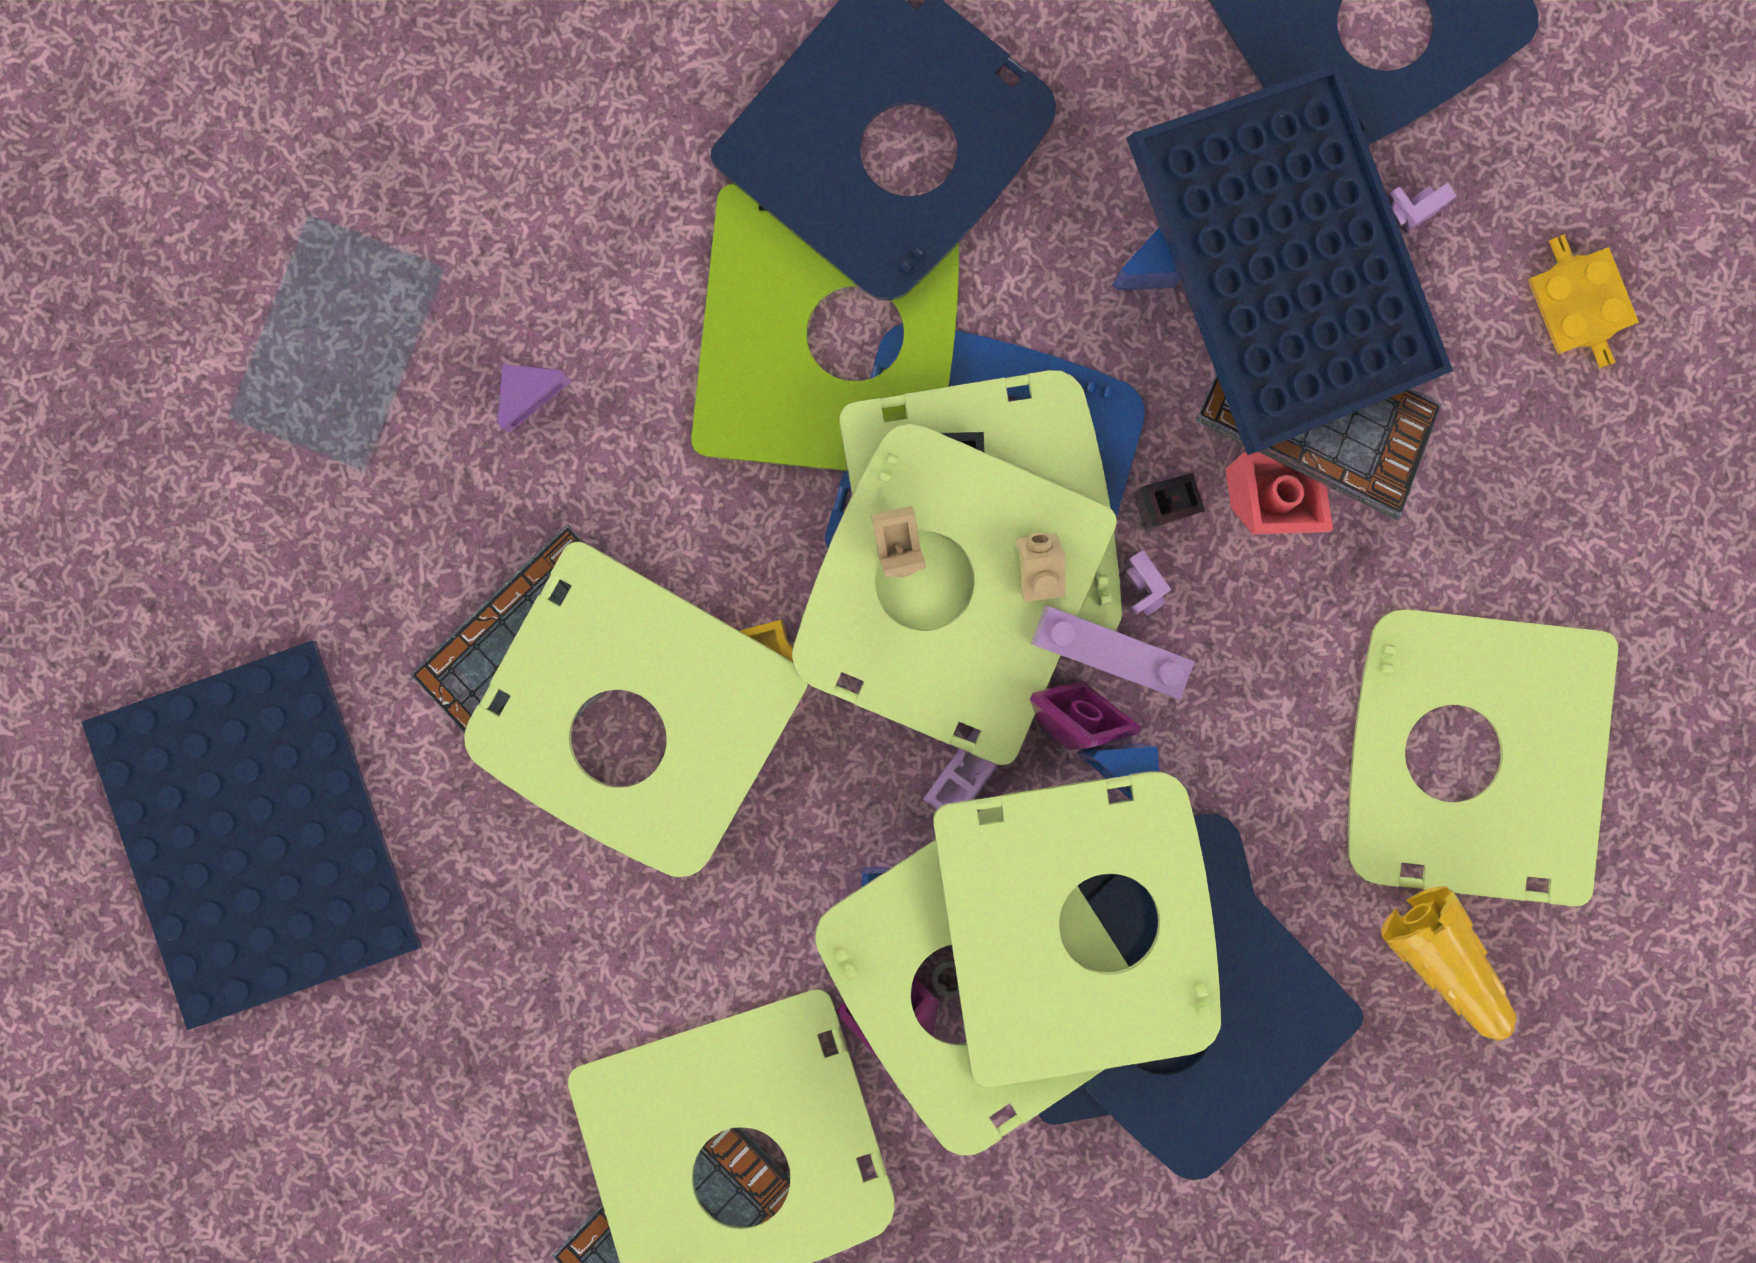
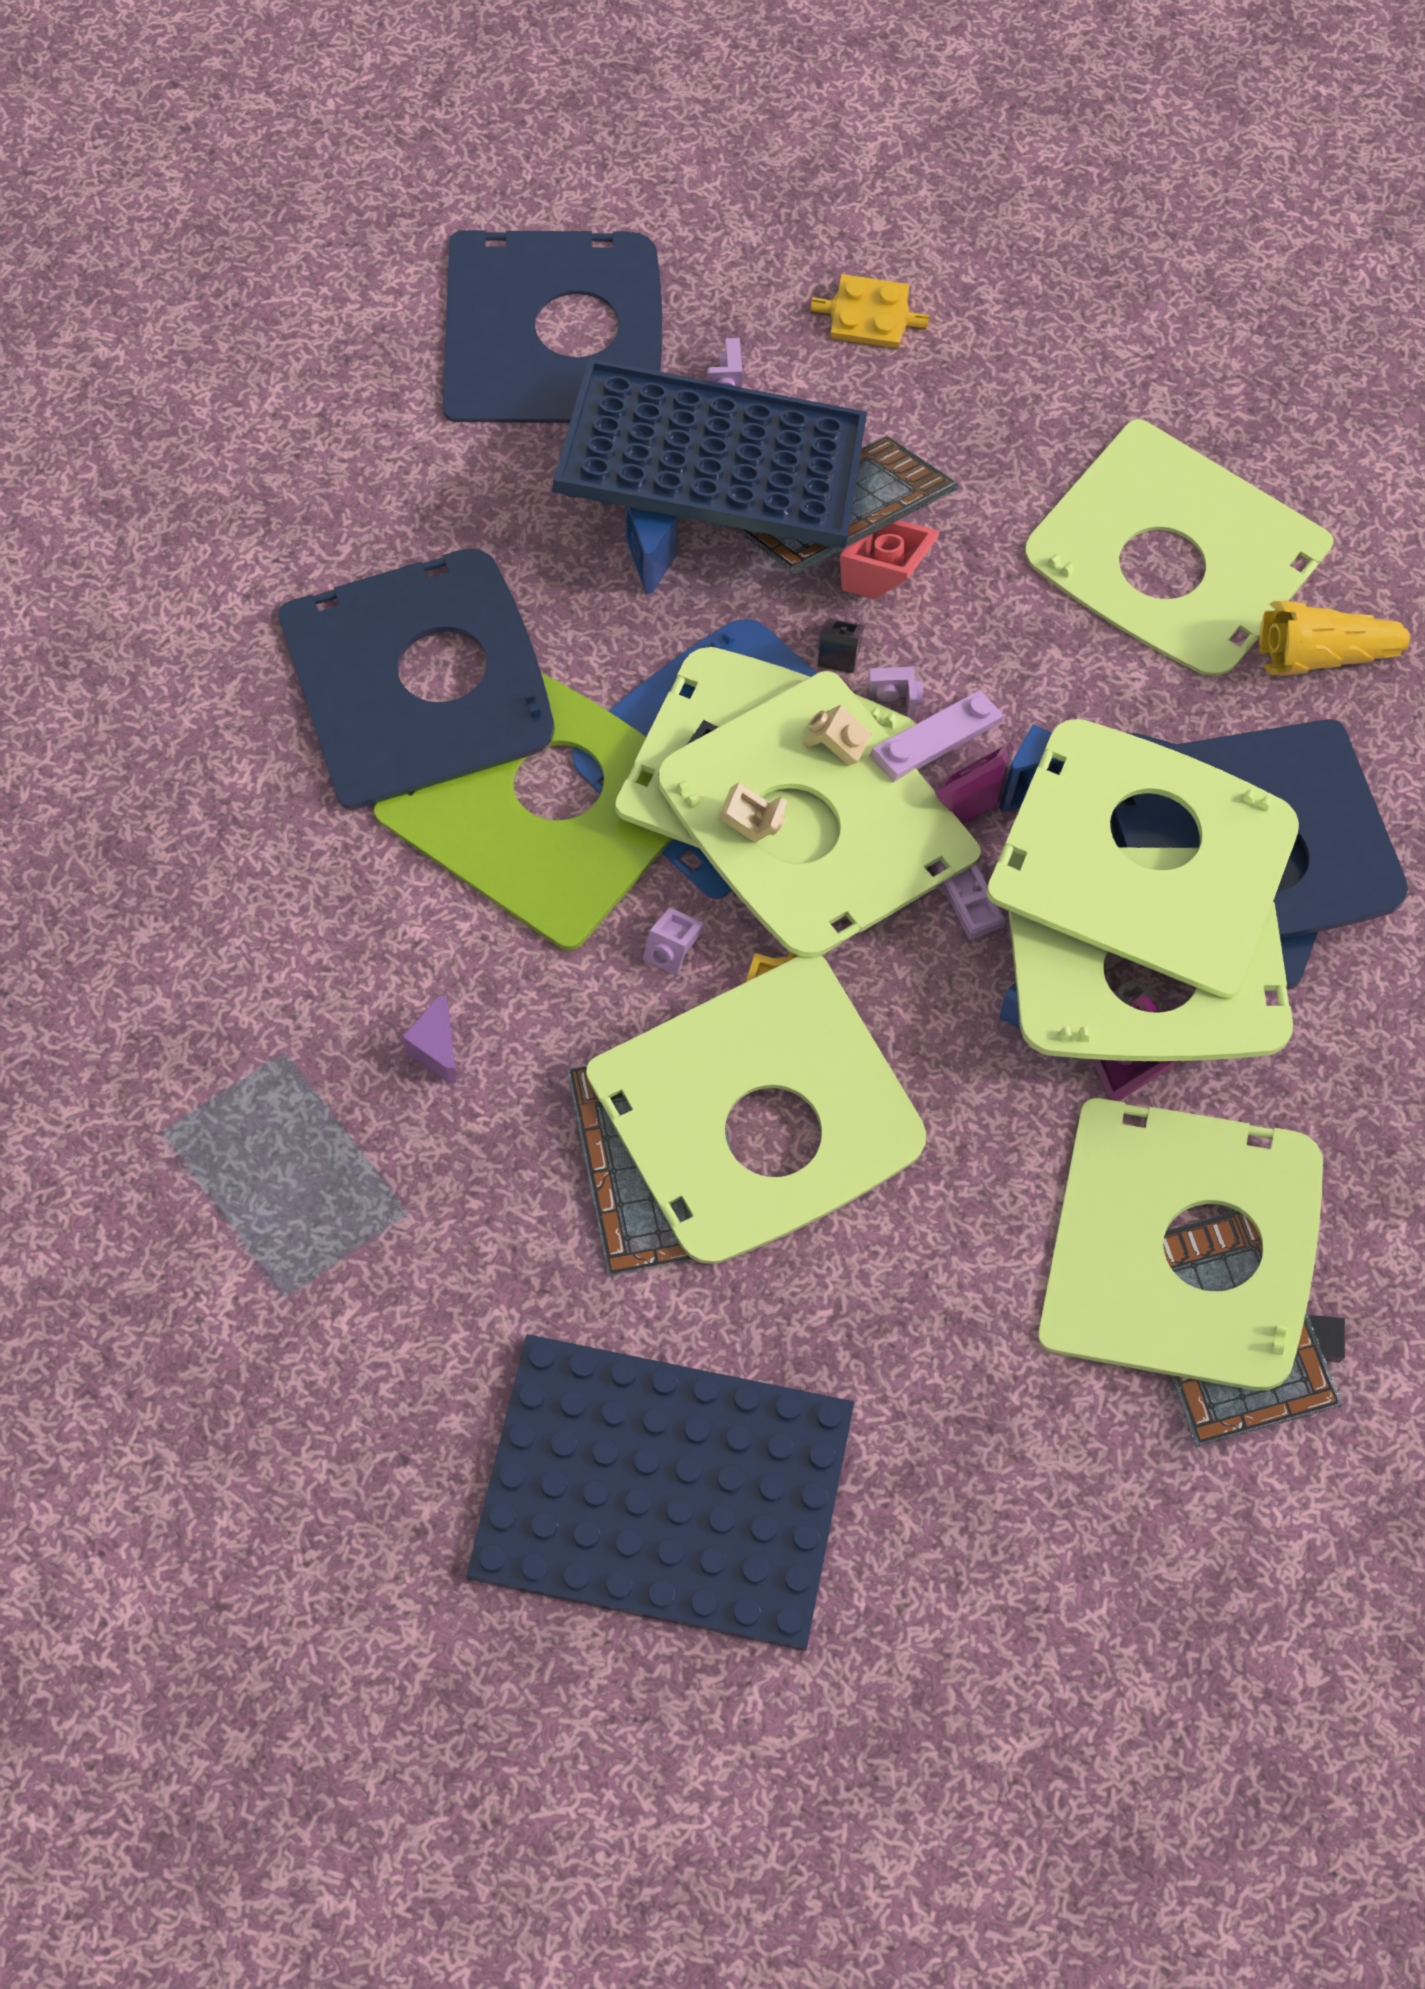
camera: 65 degrees left, 25 degrees down
(756, 535) = (671, 940): none -> lavender bracket

